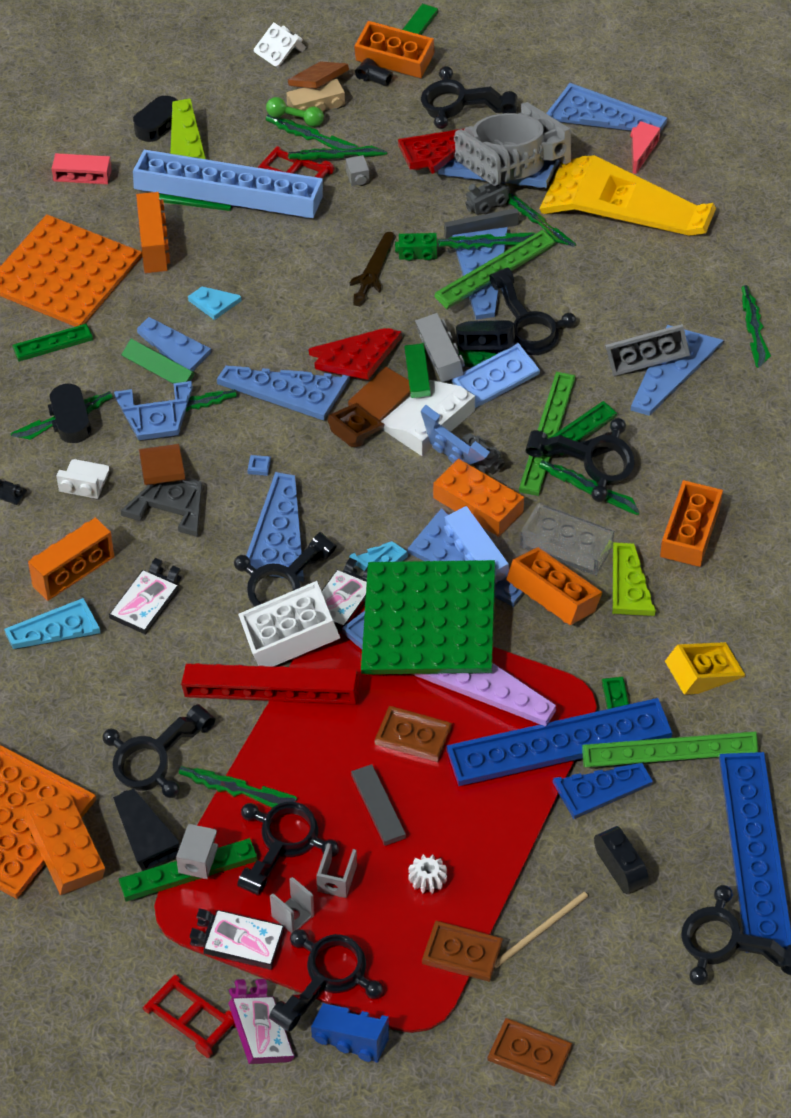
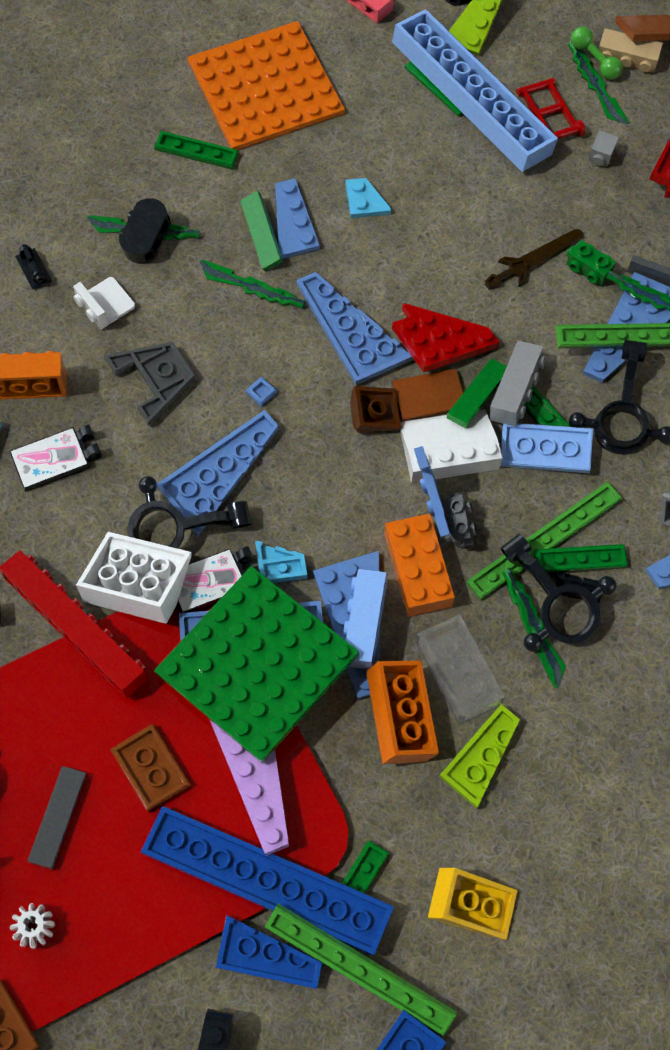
camera: 35 degrees right, 15 degrees up
(152, 232) = (364, 96): orange brick -> none
(155, 418) = (215, 285): medium blue wing -> none
(161, 464) = (175, 334): dark orange tile -> none
(335, 153) = (601, 118): green sword -> none
(485, 335) = (569, 400): black brick -> none
(691, 523) = (591, 739): orange brick -> none

